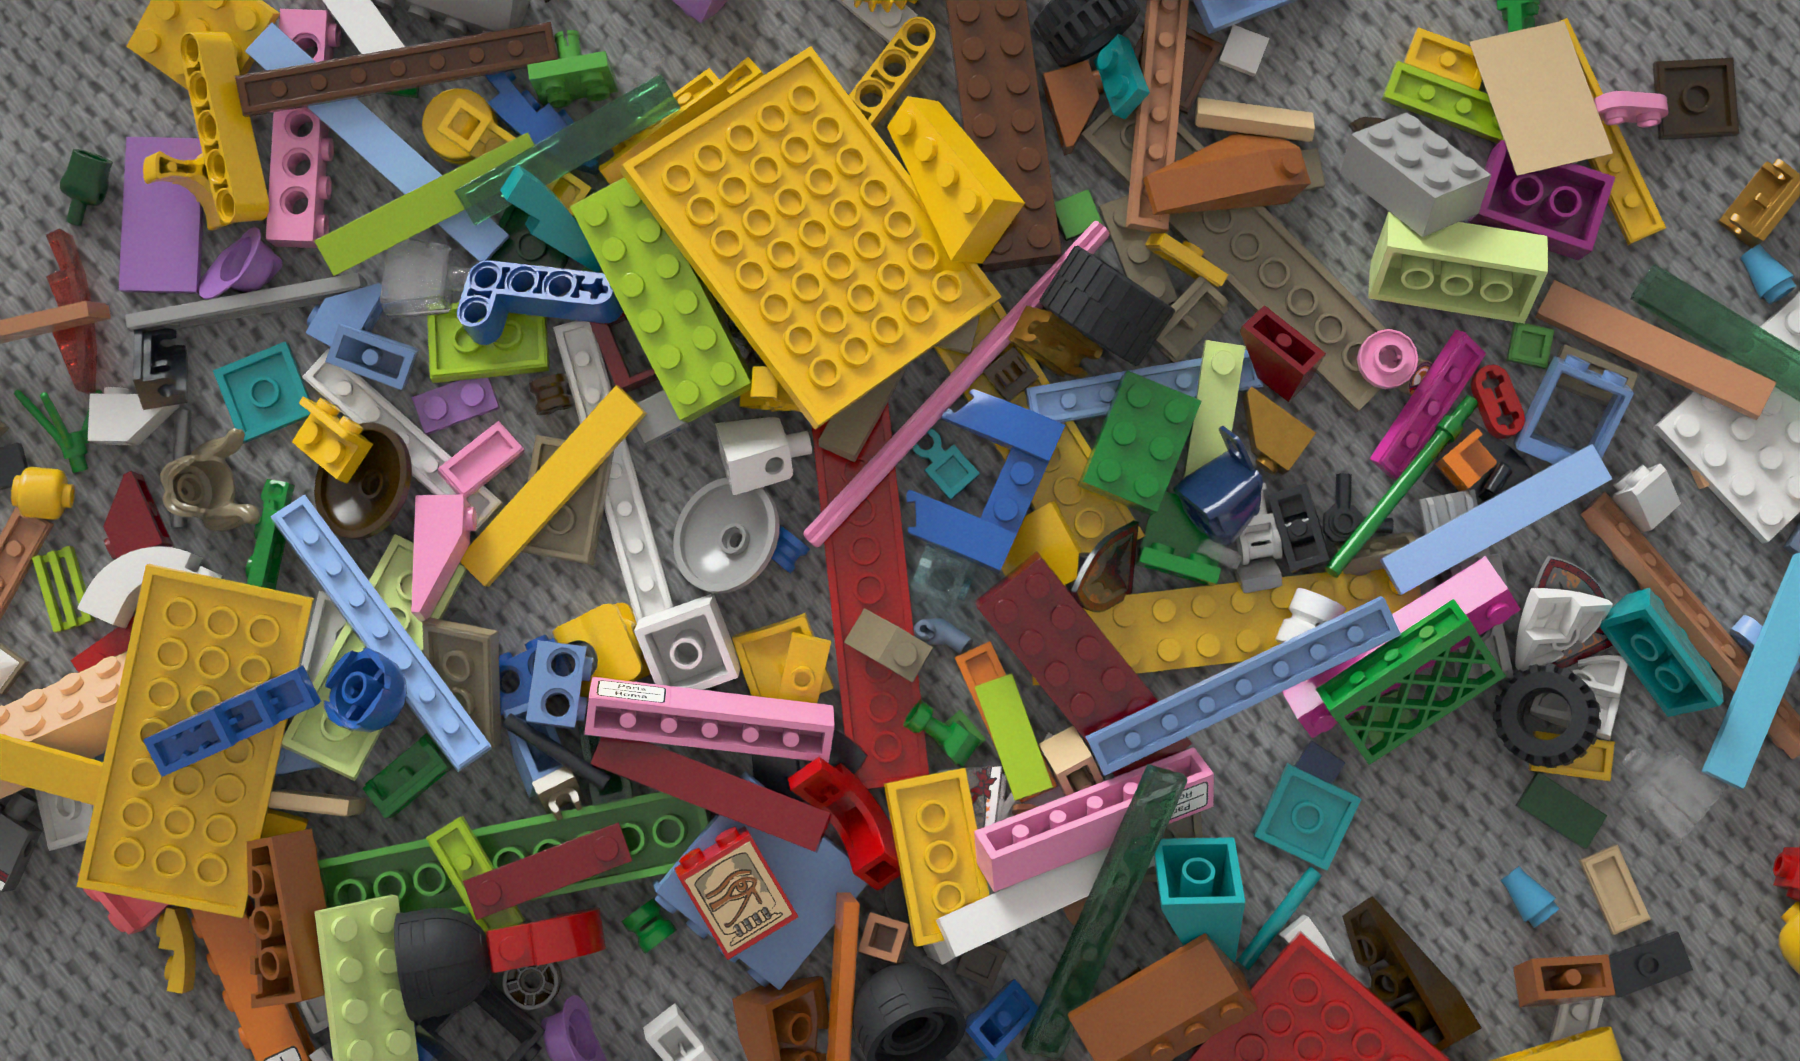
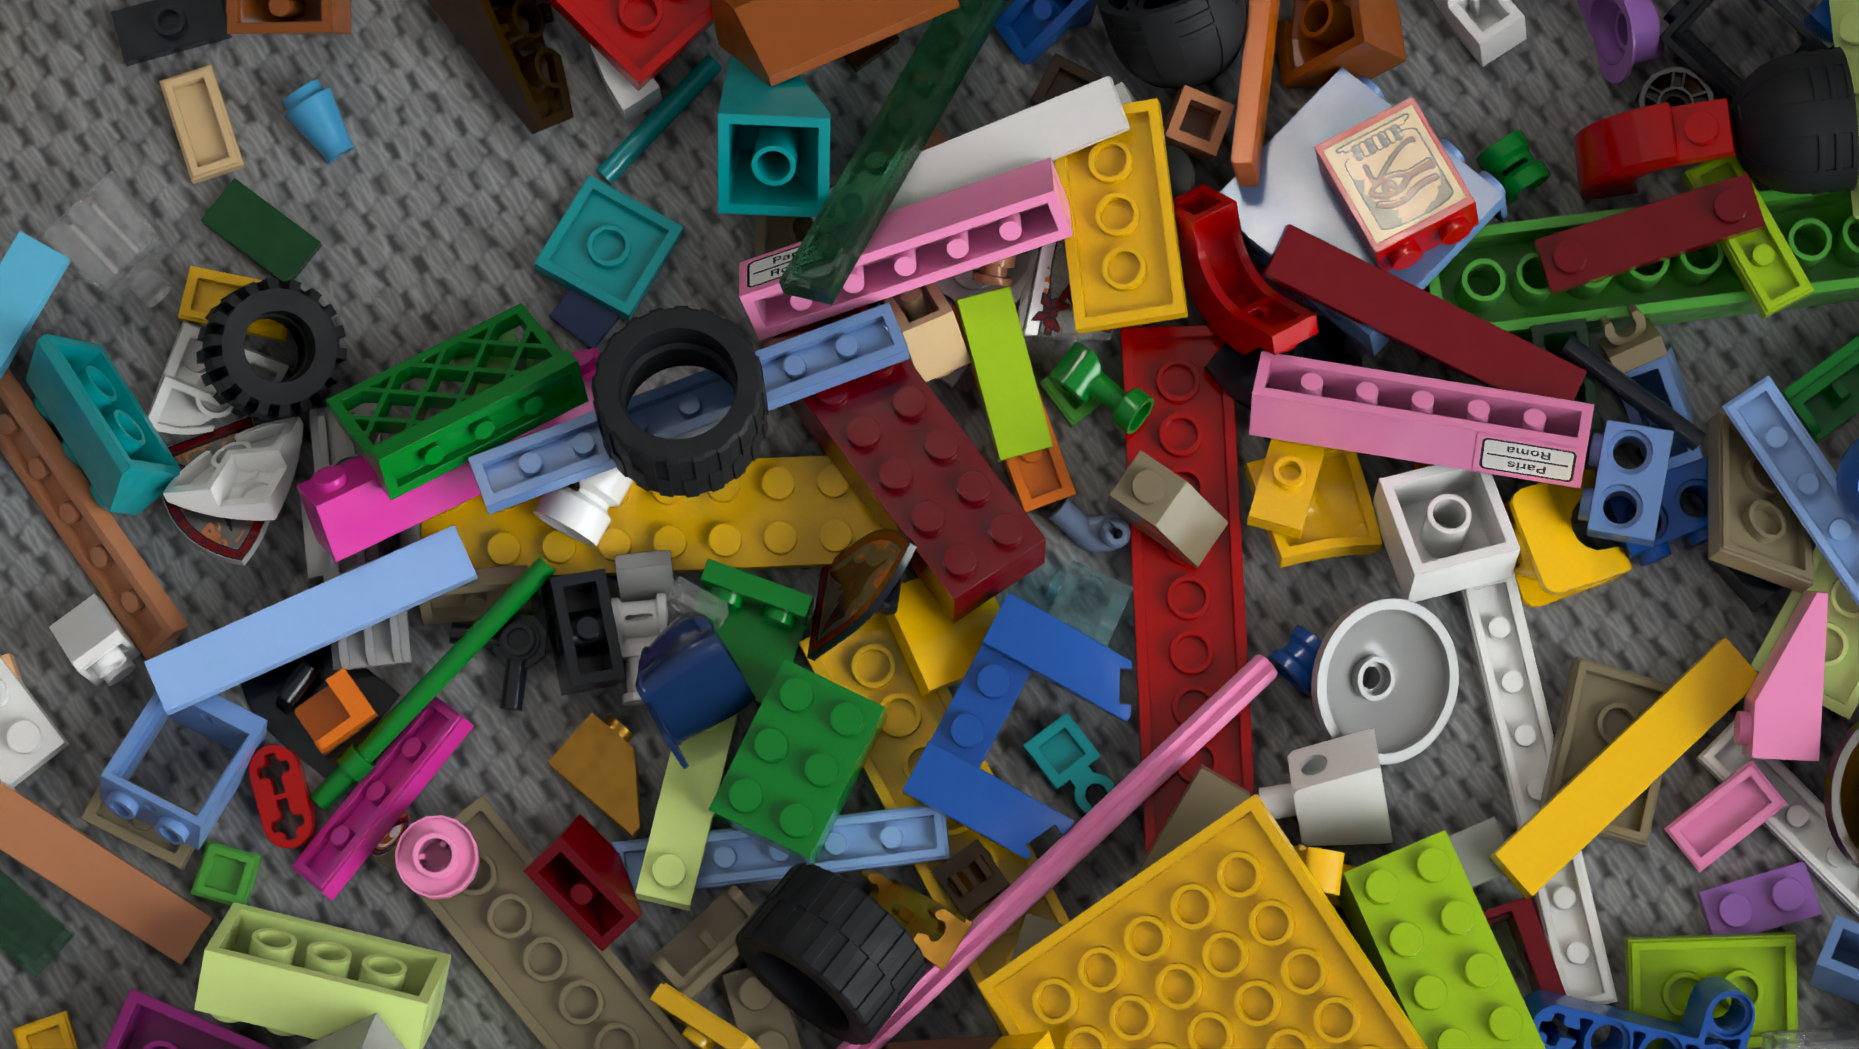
camera: 175 degrees right, 5 degrees down
(551, 394) = (1622, 902): dark brown wheel -> none
(1288, 714) = (670, 340): none -> black tyre

